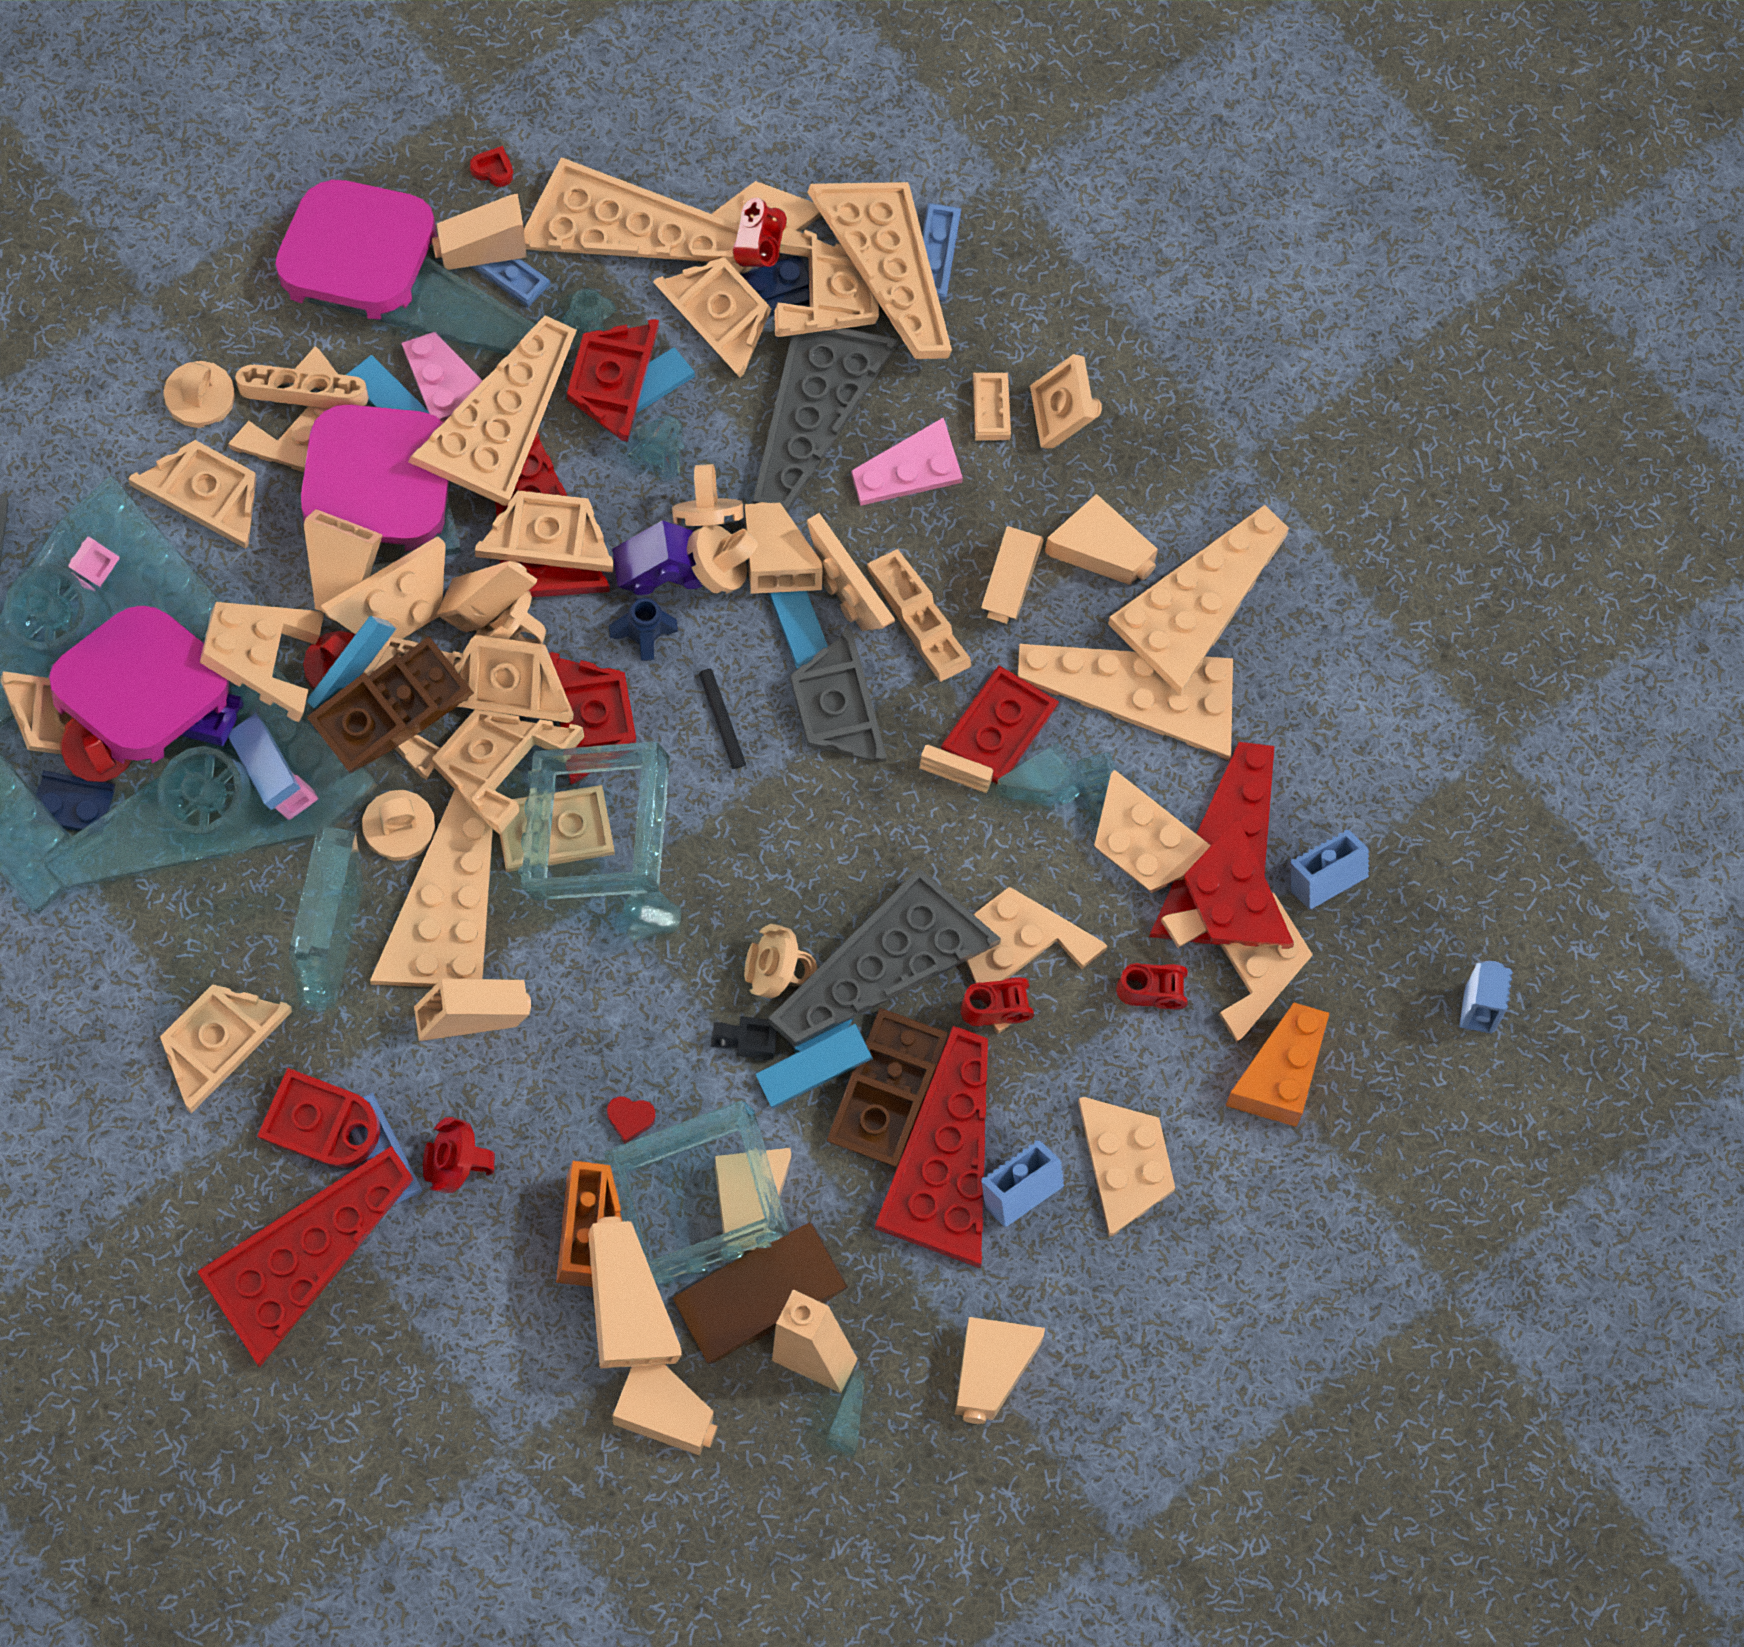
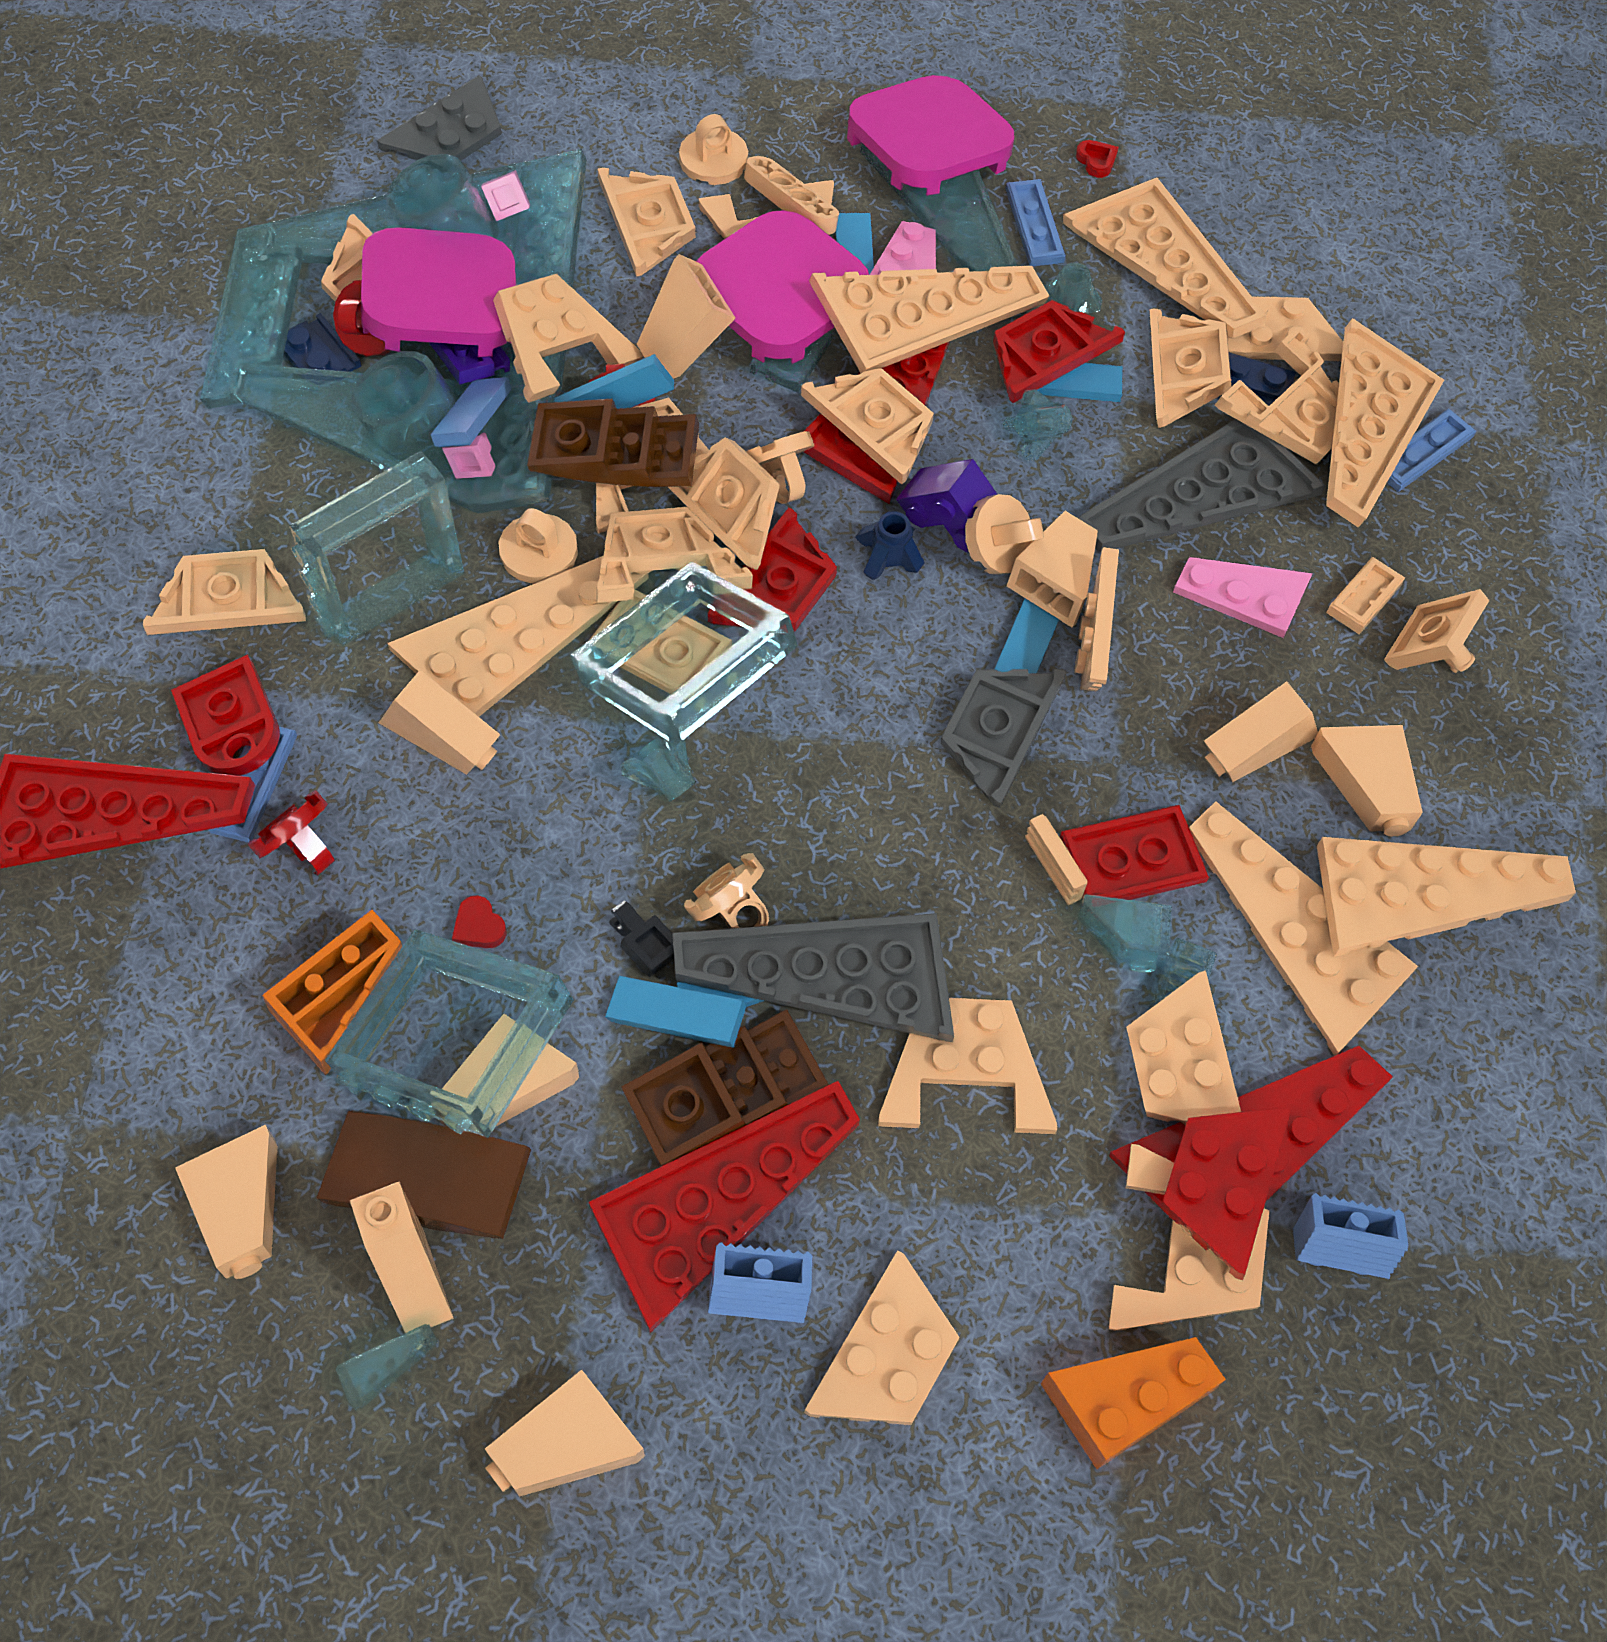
camera: 45 degrees right, 5 degrees down
(401, 593) = (708, 376): light nougat wing -> none
(482, 235) = (1038, 181): light nougat slope -> none
(484, 594) = (774, 419): light nougat slope -> none
(627, 1303) = (279, 1071): light nougat slope -> none
(707, 507) = (1035, 481): light nougat tile -> none
(722, 718) = (887, 667): black bar -> none
(760, 237) = (1275, 318): red piece -> none
(919, 615) = (1142, 712): light nougat slope -> none
(1004, 1000) = (900, 1093): red piece -> none
(1161, 986) = (1071, 1206): red piece -> none
(1486, 997) = (1418, 1508): medium blue brick -> none

